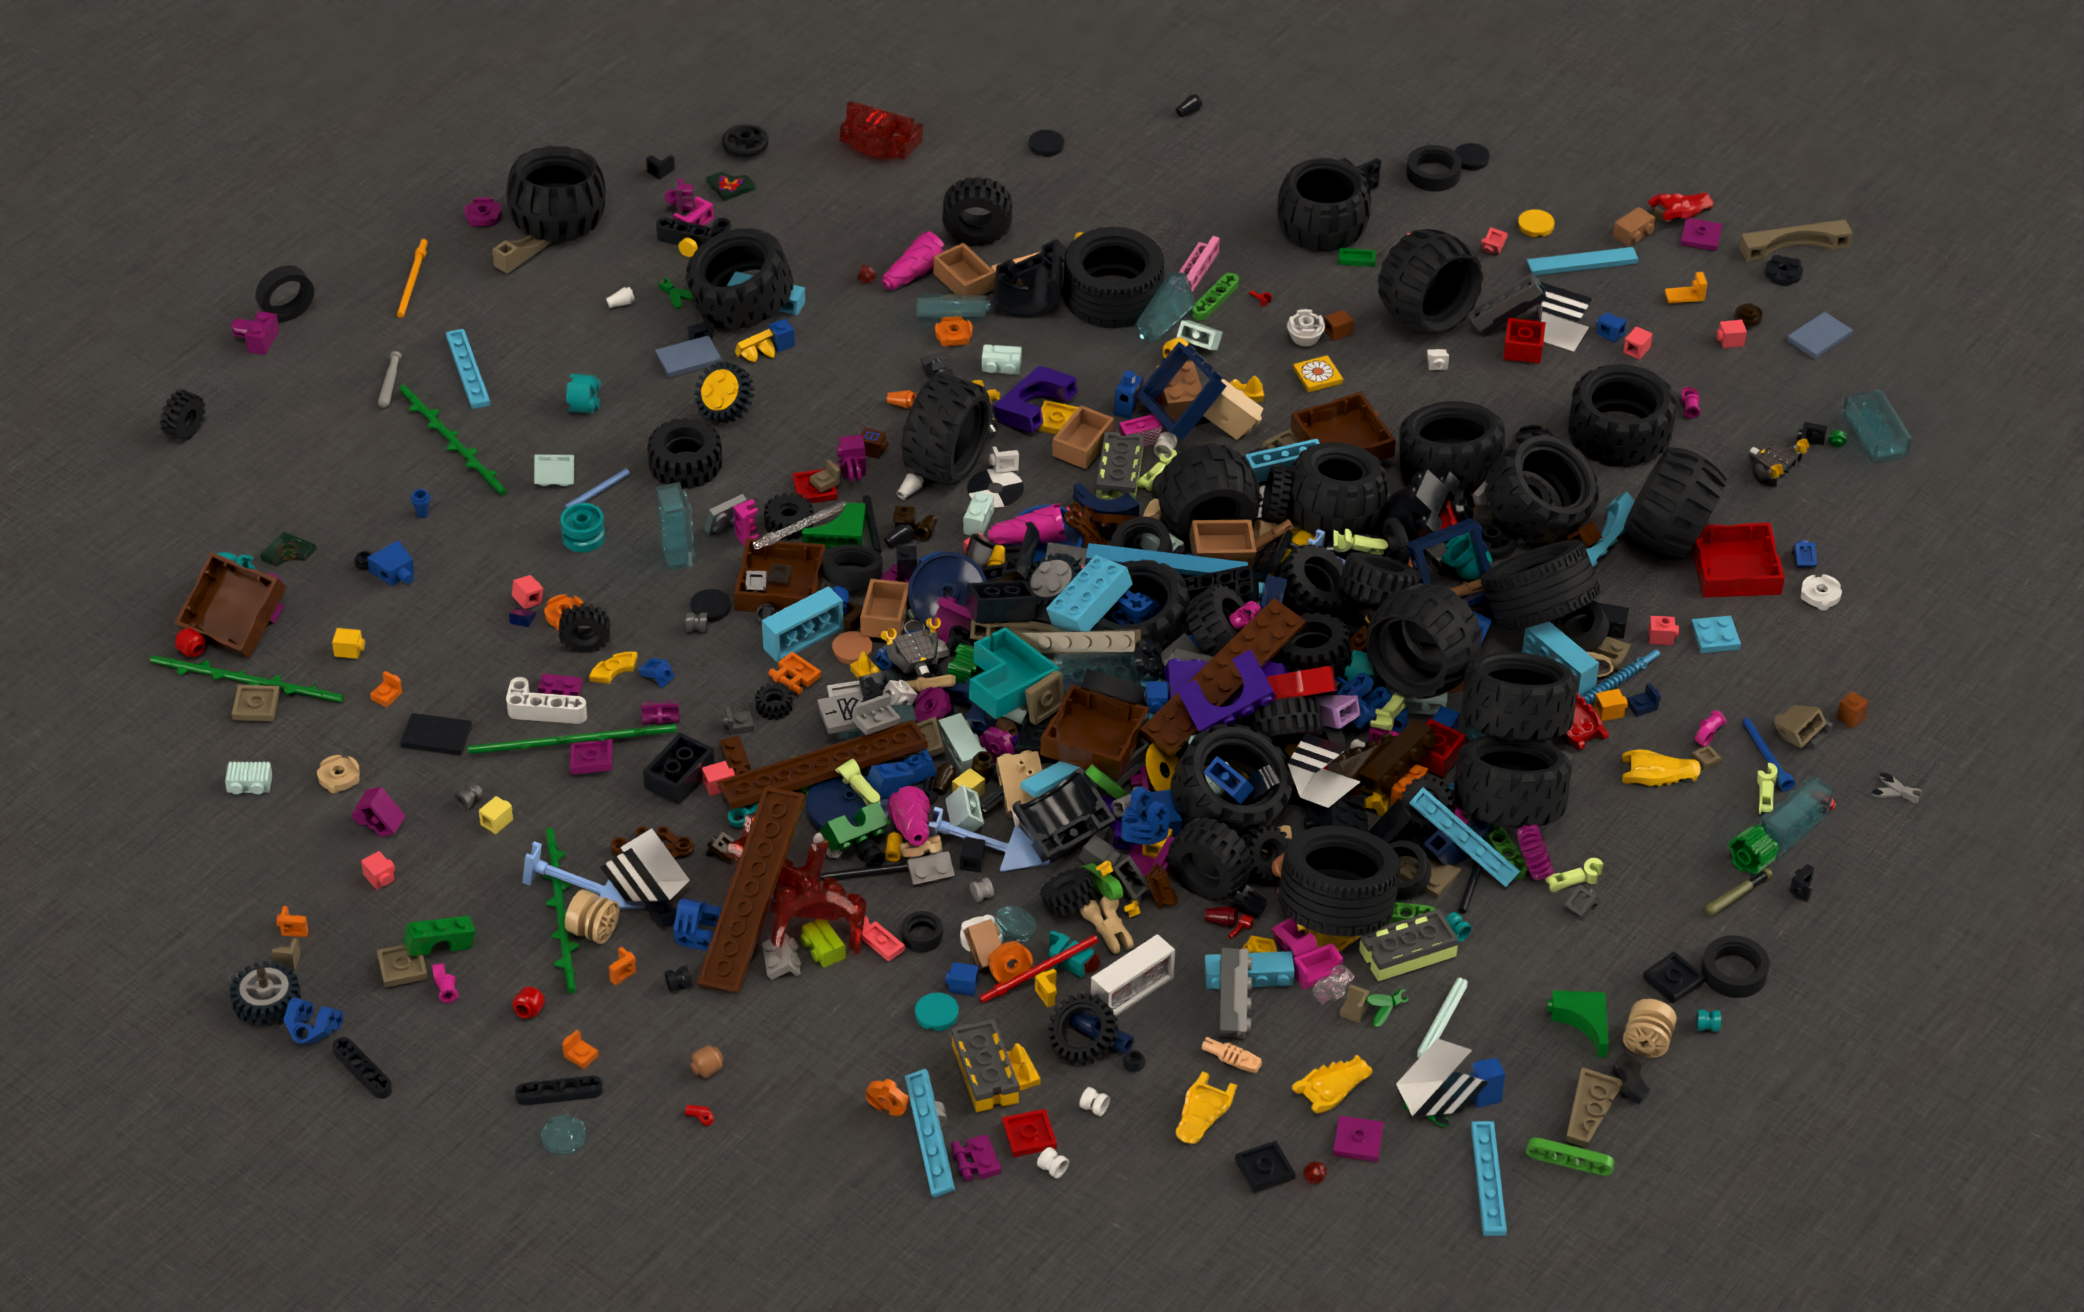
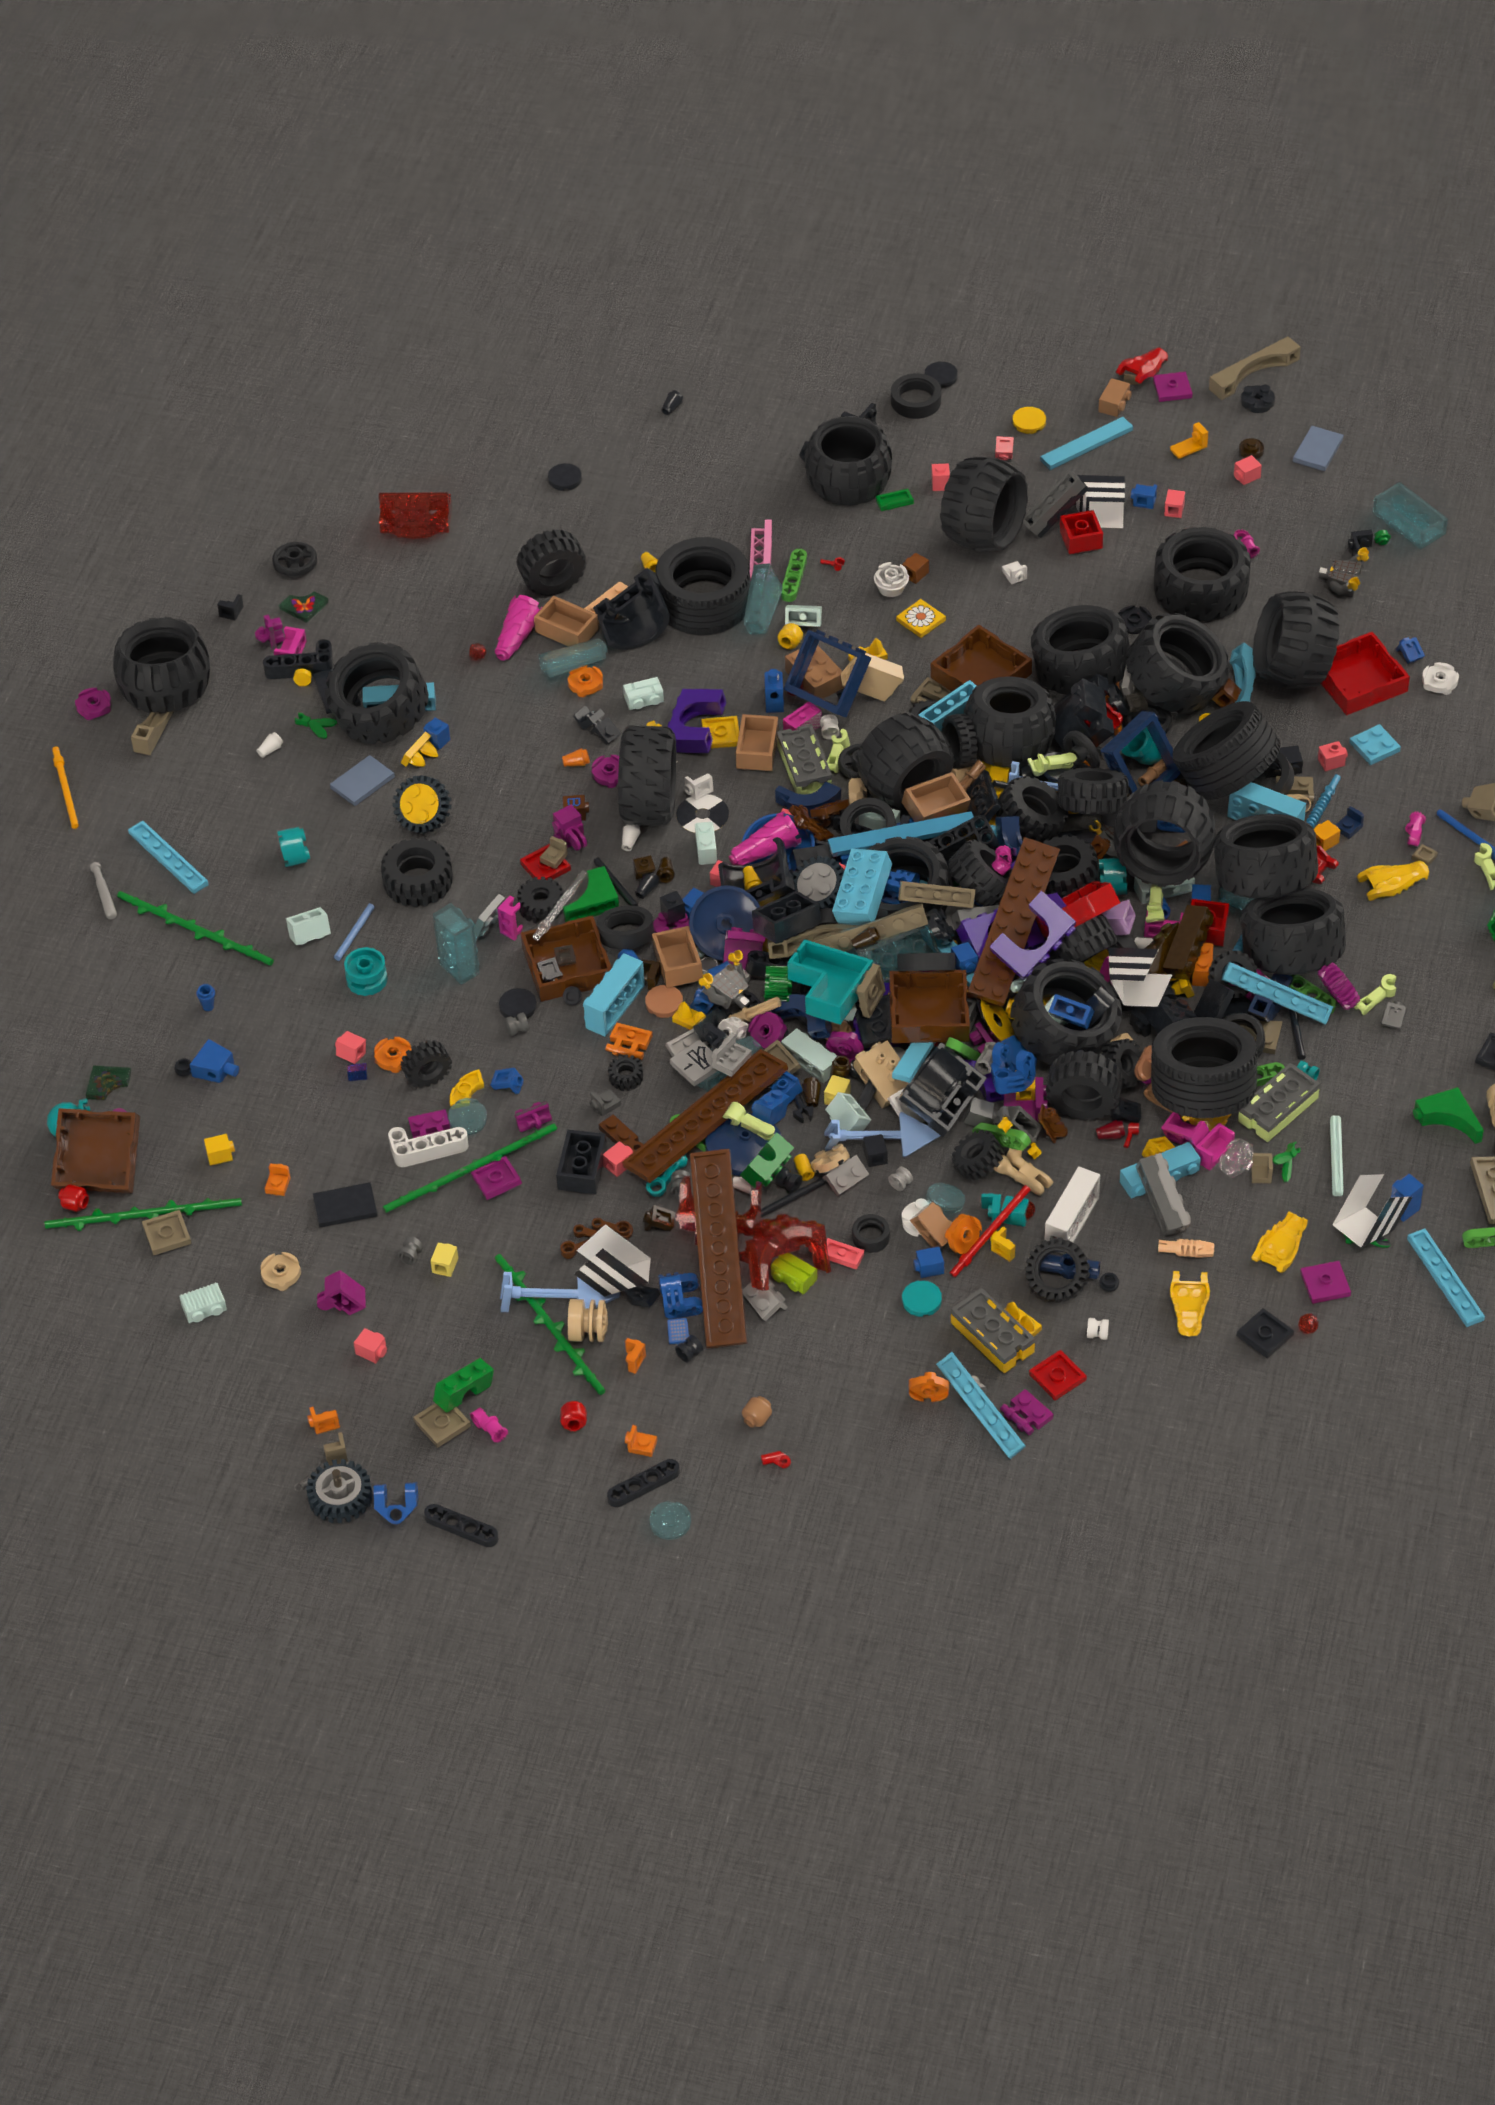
camera: 20 degrees left, 5 degrees up
(599, 691) = (468, 1114): none -> clear light blue tile
(678, 957) = (677, 1330): none -> blue slope
(701, 330) = (364, 750): black bracket -> none
(910, 814) = (809, 1134): dark pink cone -> none
(1051, 1161) = (1093, 1393): white wheel -> none
(1065, 645) = (866, 938): none -> dark brown cone
(1157, 625) = (936, 894): none -> dark tan plate
(1359, 686) = (1132, 894): blue piece -> none

